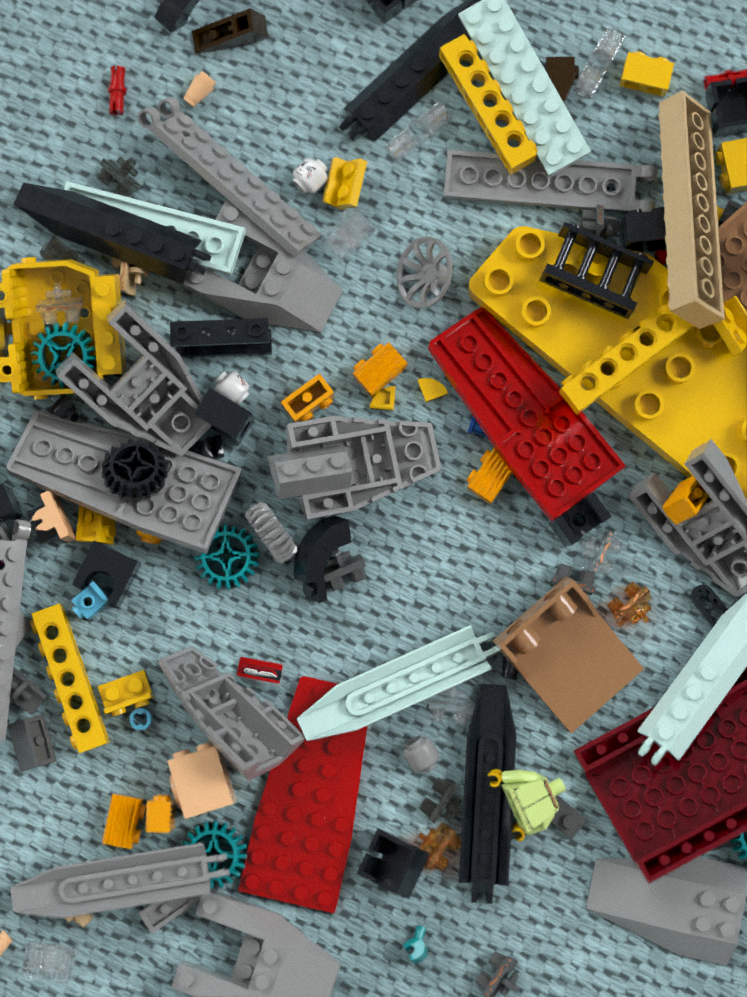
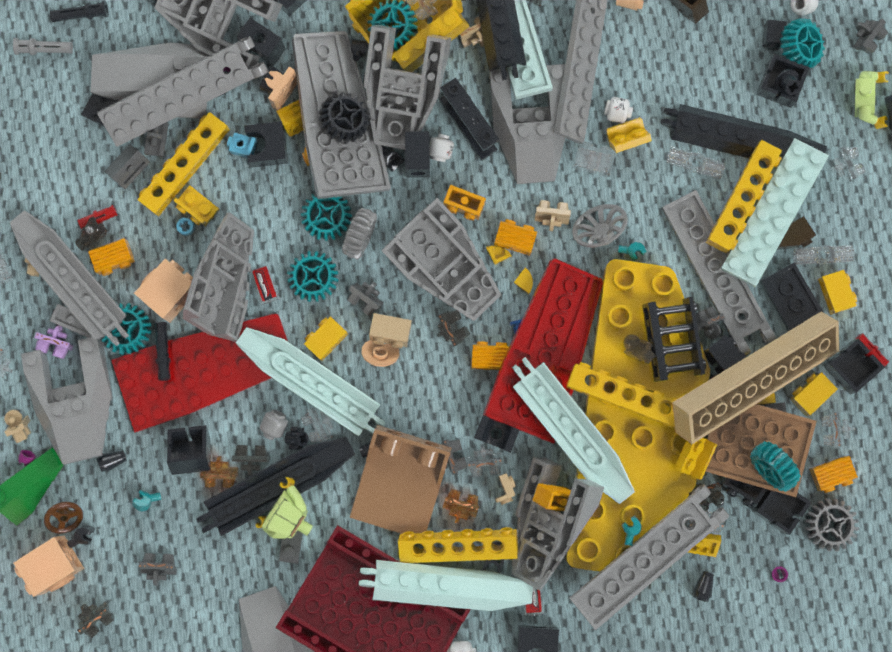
camera: 60 degrees right, 0 degrees up
(66, 827) = (109, 212): none -> red pin
(85, 829) = (91, 235): none -> clear smoke hips
(160, 814) = (129, 277): light orange brick -> none
(189, 938) = (61, 347): none -> lavender hips
(264, 617) = (306, 282): none -> teal gear
(270, 829) = (163, 360): none -> black pin
(310, 471) = (415, 232): light grey slope -> none
(314, 552) = (365, 269): black arch -> none
(350, 957) = (111, 460): none -> black cone
(361, 640) = (325, 338): none -> yellow brick
(381, 317) = (552, 216): none -> tan hips
(396, 565) = (390, 330): none -> tan brick
(415, 591) = (379, 355): none -> light nougat dish
(435, 501) = (449, 328): none -> clear smoke hips
(451, 738) = (296, 438): none -> black gear
(469, 256) = (634, 247): none -> teal piece
(585, 312) = (638, 348): none -> clear smoke hips
(621, 123) = (791, 296): none -> black plate
(627, 435) = (573, 430): none -> light aqua hinge
(642, 542) = (507, 484): none -> tan bracket
(685, 628) = (449, 552): none -> yellow brick

